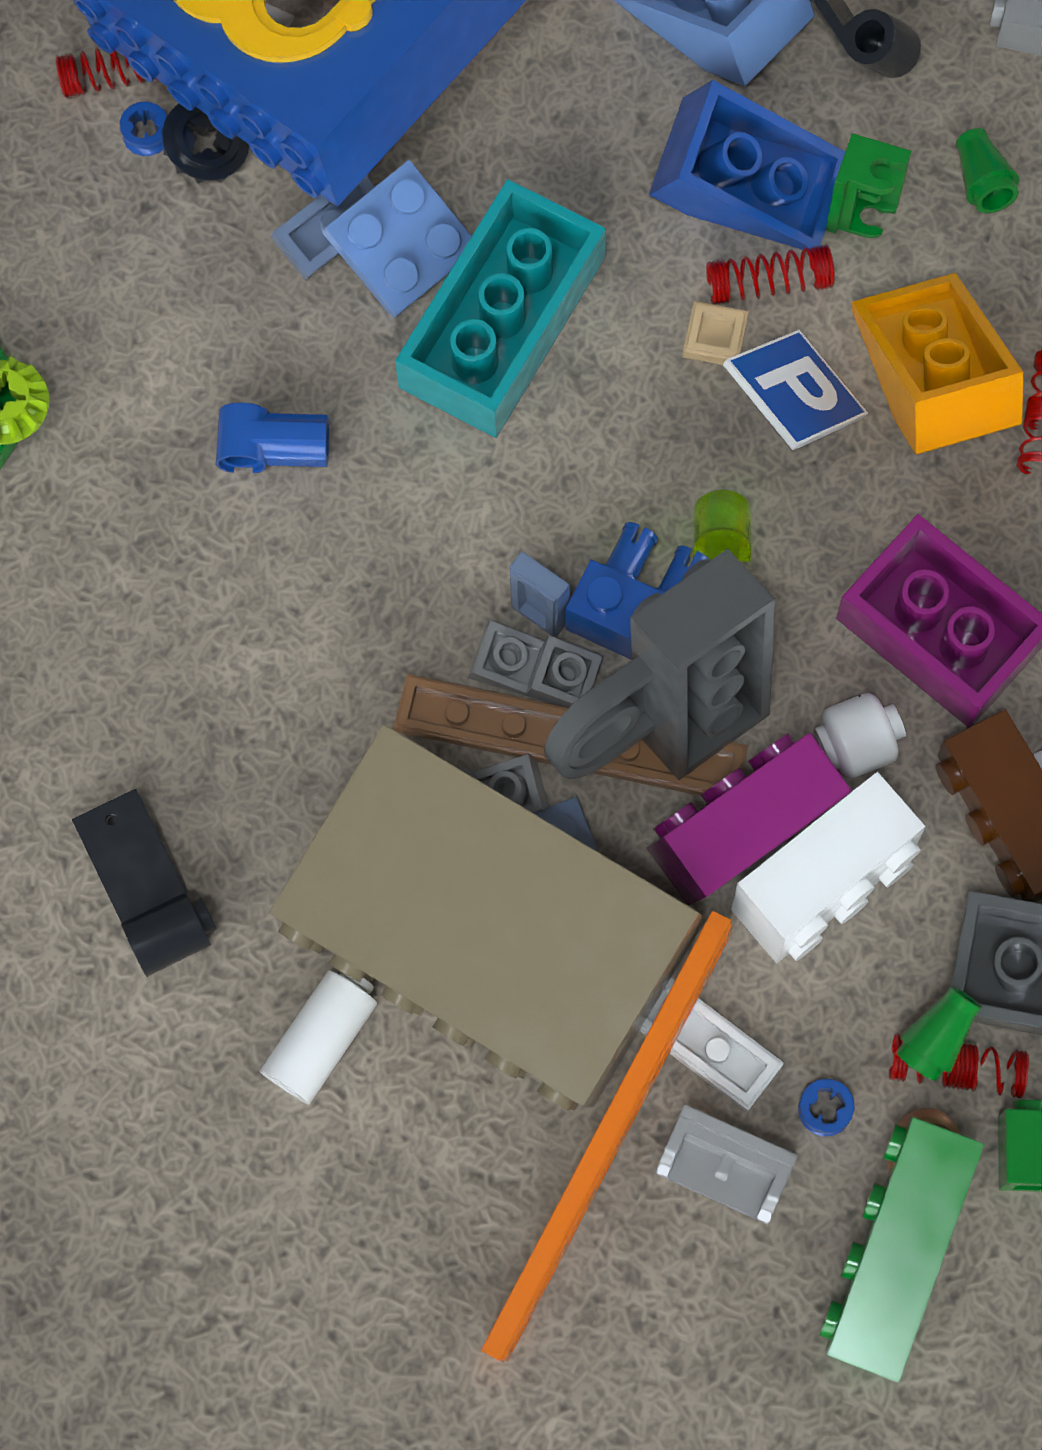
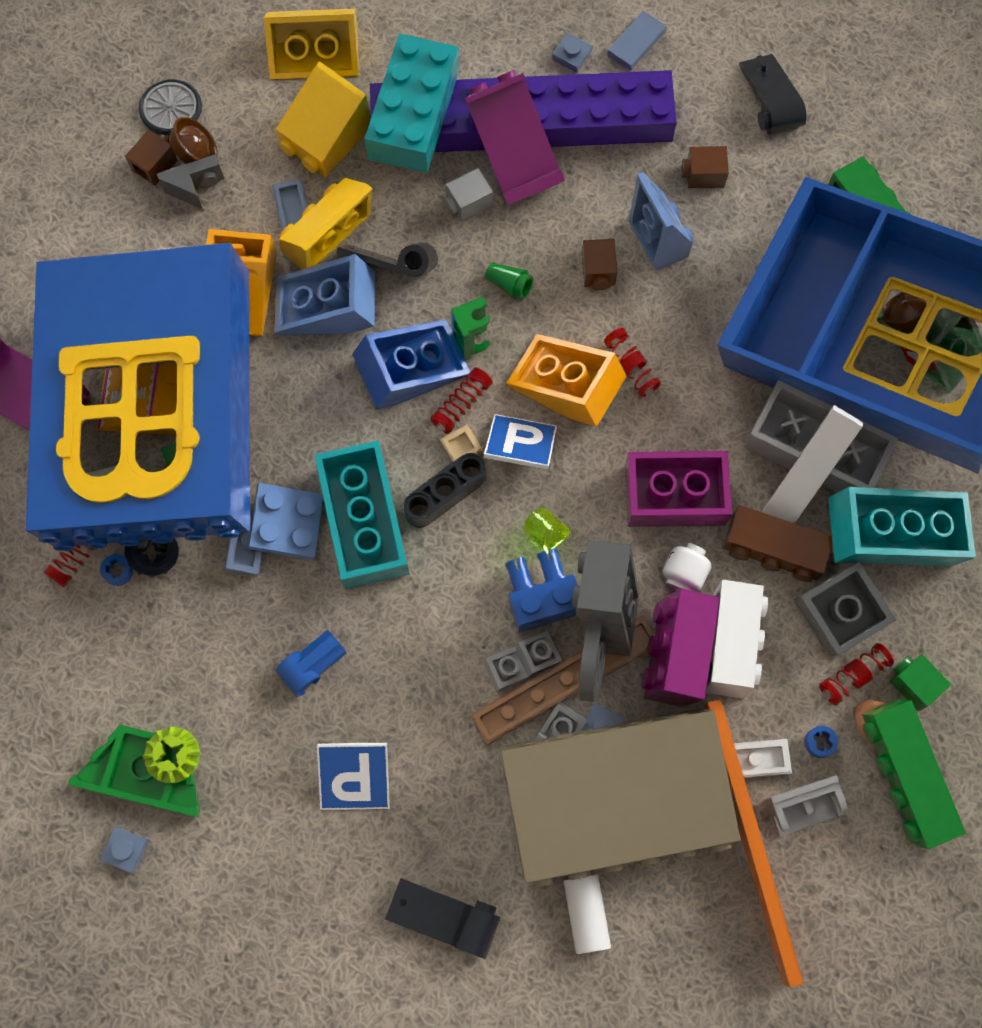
camera: 45 degrees left, 0 degrees up
(193, 618) = (353, 776): none -> blue piece
(538, 594) = (500, 628): sand blue tile -> none
(615, 352) = (449, 476): none -> black beam
(939, 1034) = (846, 669): green cone -> none

